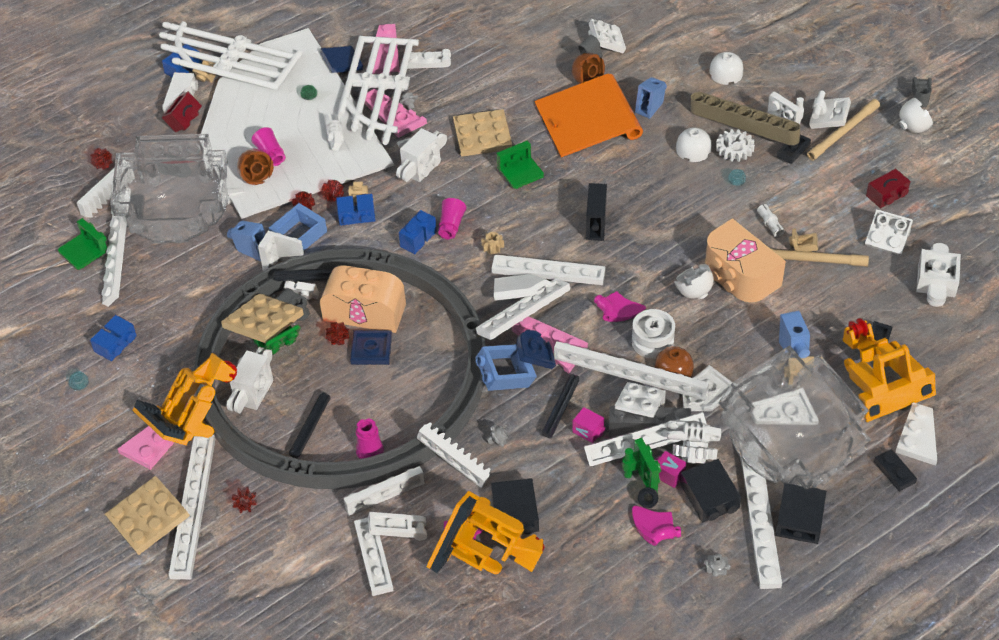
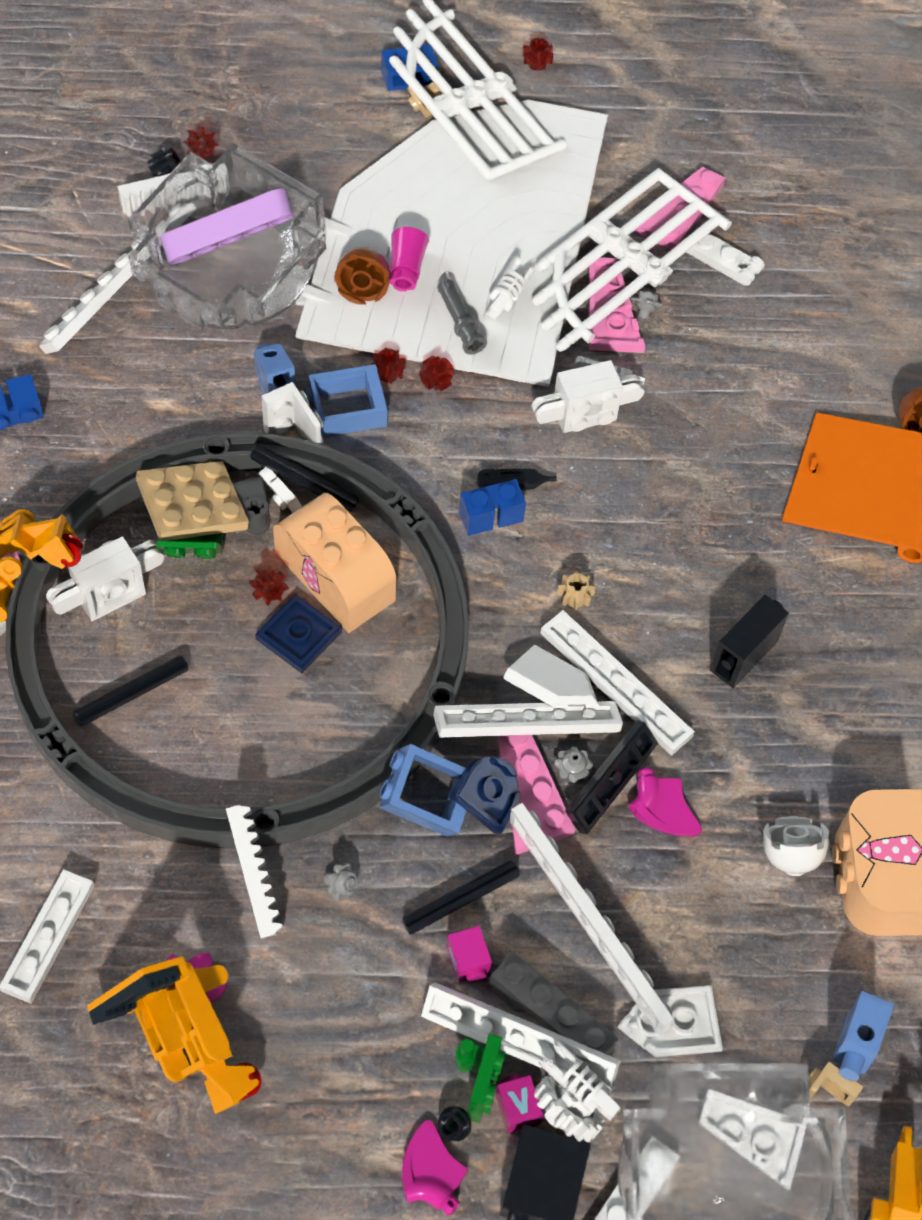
camera: 30 degrees right, 10 degrees up
(84, 247) = (80, 254): green bracket -> none
(90, 178) = (163, 162): none -> black gear
(164, 180) = (226, 226): none -> lavender beam
(180, 84) = (368, 109): white slope -> none
(182, 112) = (346, 139): dark red brick -> none
(246, 20) = (538, 54): none -> clear red gear
(308, 92) = (525, 210): clear green plate -> none
(328, 160) = (465, 325): none -> dark grey pin
(339, 58) = (607, 183): dark blue tile -> none
(351, 214) = (448, 428): blue piece -> none
(357, 189) = (467, 397): tan gear -> none
(368, 439) = (174, 772): dark pink plant -> none
(383, 491) = (126, 851): white plate -> none
(397, 525) = (106, 917): white plate -> none
(403, 220) = (526, 477): none -> black piece
(451, 216) = (551, 516): dark pink plant -> none
(482, 132) = (705, 414): tan plate -> none
(517, 501) = (272, 1004): black brick -> none
(518, 166) = (708, 498): green bracket -> none
(561, 316) = (573, 764): none -> light grey plant
(584, 310) = (611, 777): none -> black plate
(640, 399) = (559, 975): white bracket -> none
(652, 332) = (671, 882): white wheel -> none
(675, 360) = (662, 949): dark orange cylinder -> none

